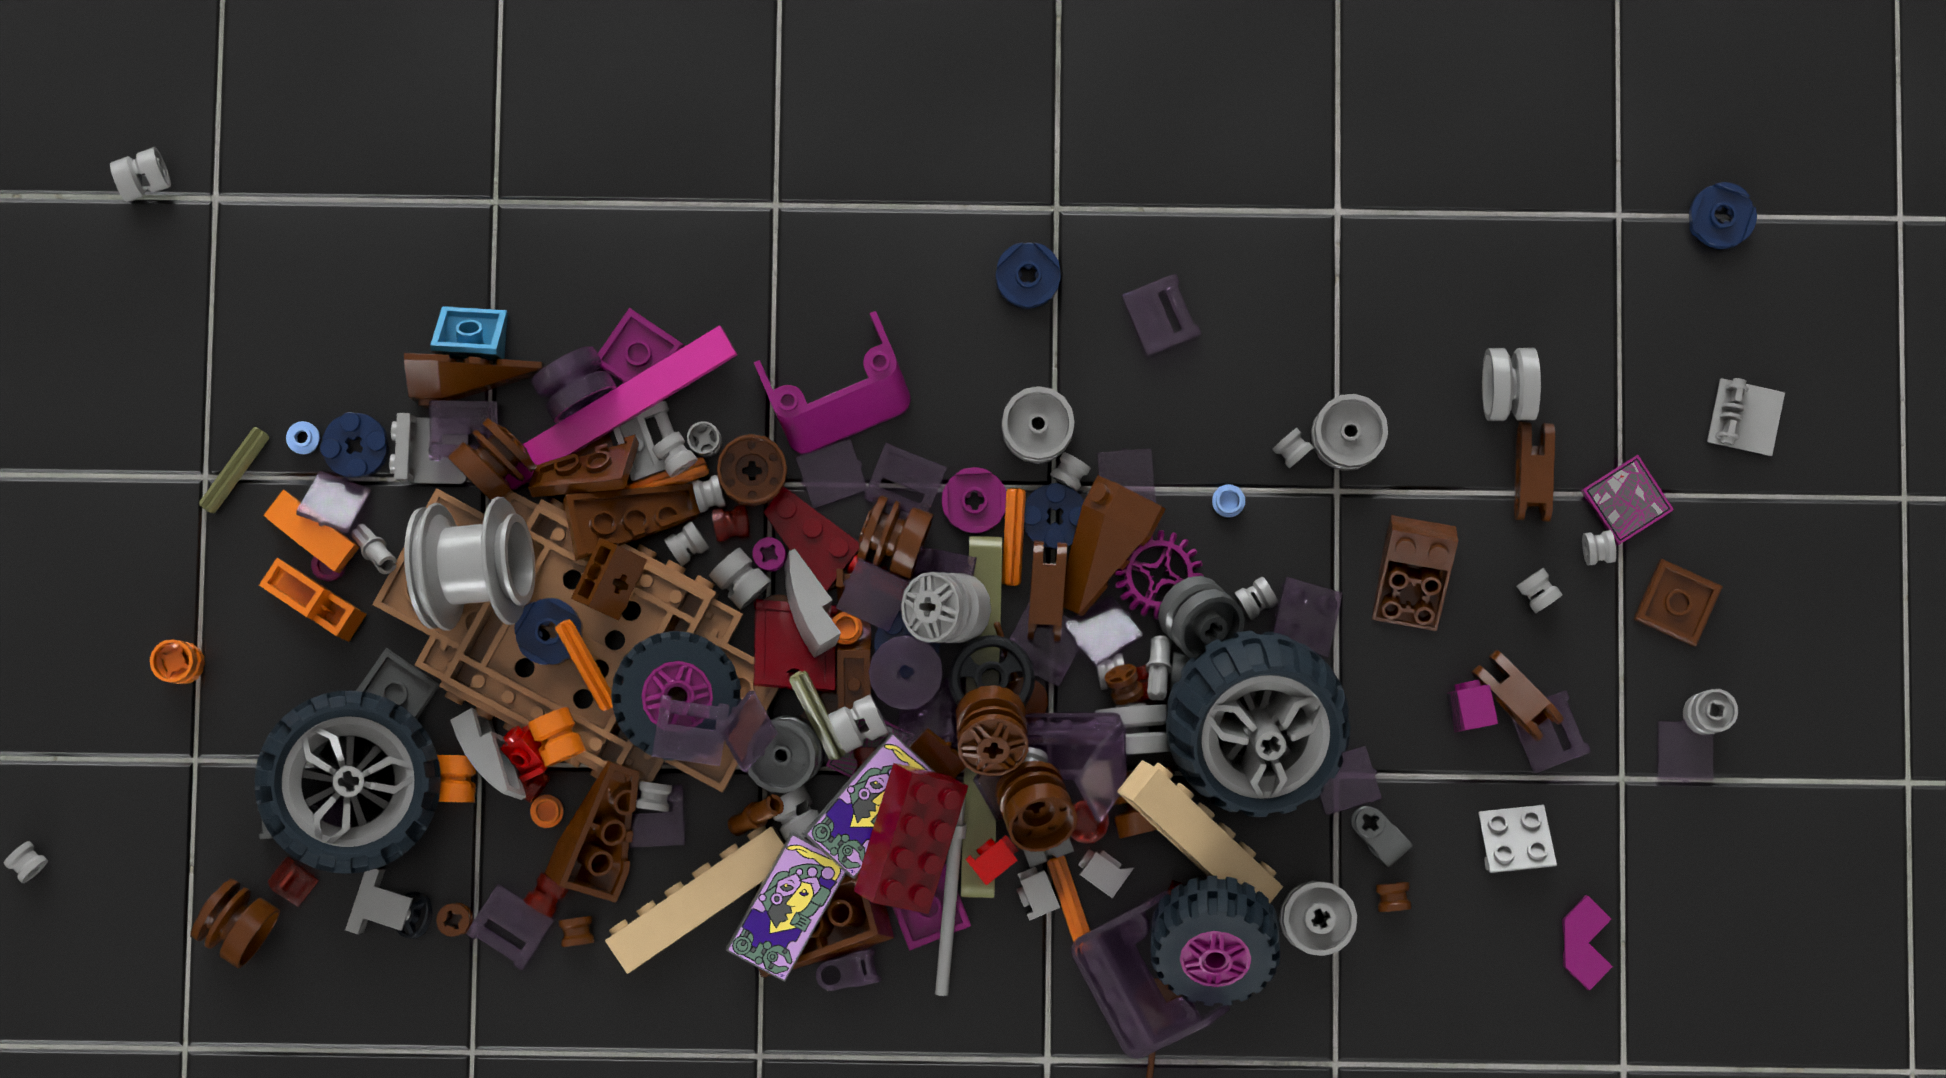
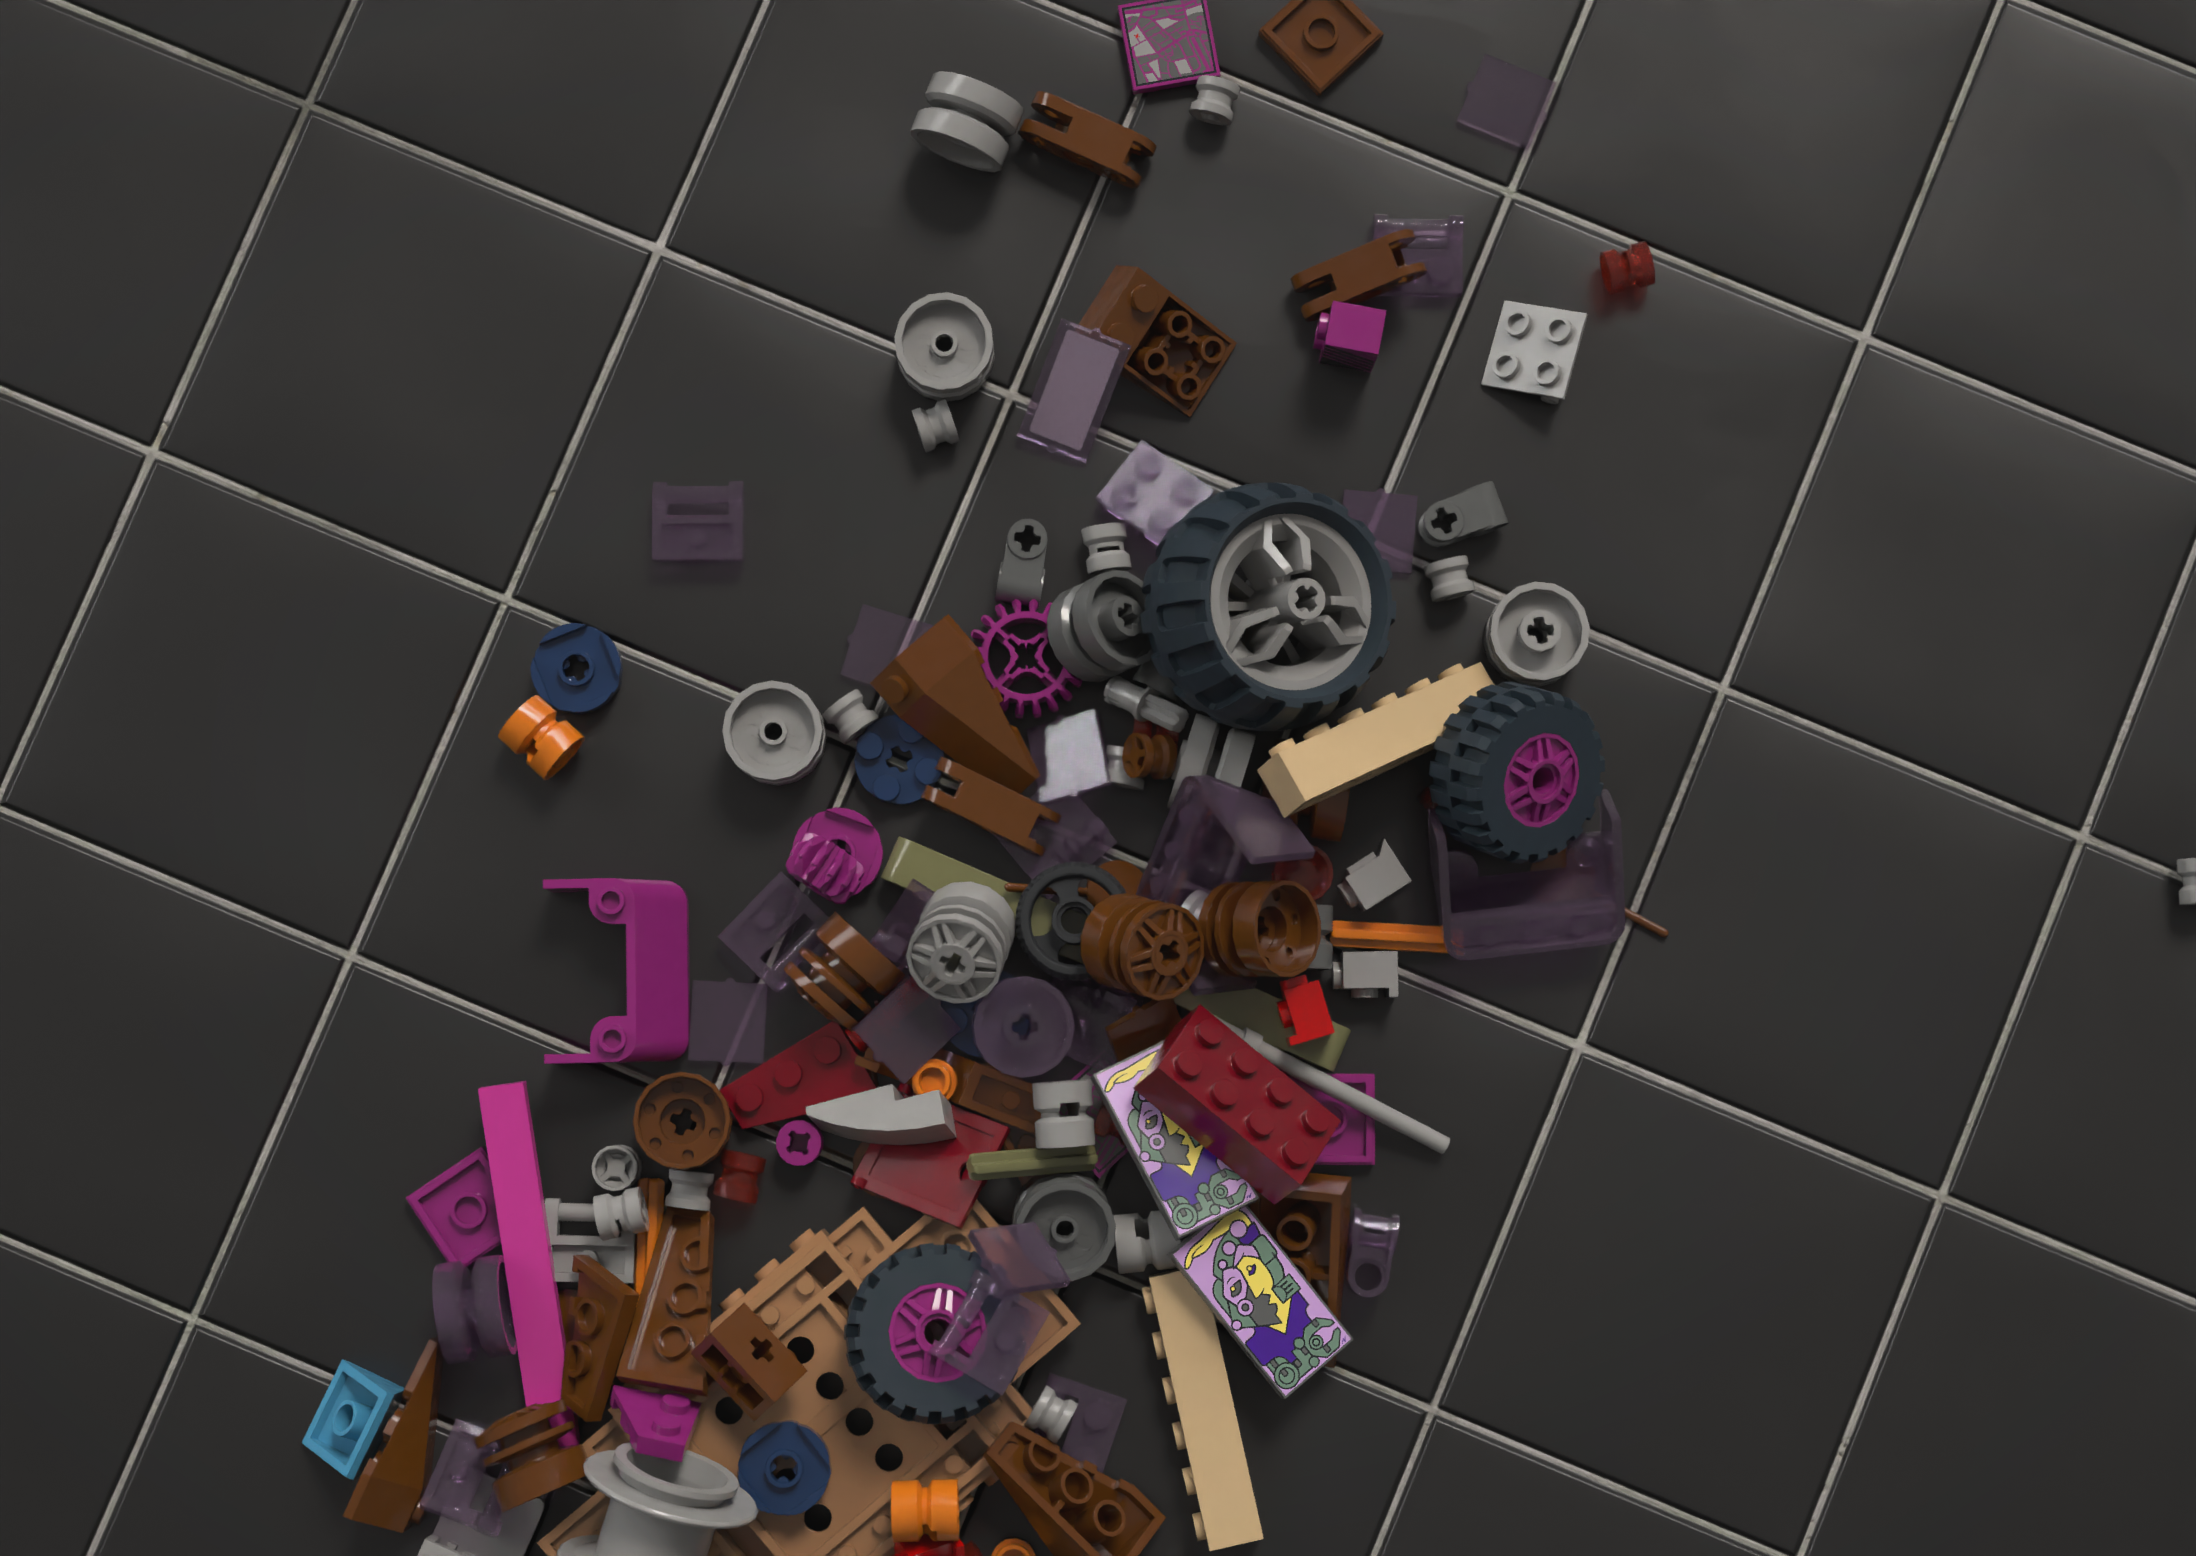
camera: 75 degrees left, 0 degrees up
(545, 534) = (656, 1422): none -> magenta wing
(585, 664) = (846, 1436): orange axle -> none
(686, 543) = (742, 1244): light grey wheel -> none
(739, 578) = (815, 1193): light grey wheel -> none
(755, 815) = (1127, 1292): reddish brown pin -> none
(959, 495) = (825, 868): none -> magenta gear
(972, 269) = (541, 737): none -> orange wheel
(1013, 536) = (904, 821): orange axle -> none
(1216, 548) = (1021, 571): none -> dark grey piece
(1228, 501) = (969, 533): light blue plate -> none
(1332, 842) = (1449, 578): none -> light grey wheel
(1355, 532) = (1073, 390): none -> clear purple piece
(1393, 897) = (1546, 531): reddish brown wheel -> none
(1534, 584) = (1228, 198): light grey wheel -> none
(1579, 928) = (1674, 320): magenta tile -> none
(1601, 881) = (1627, 268): none -> clear red wheel
(1710, 711) = (1470, 59): light grey wheel -> none

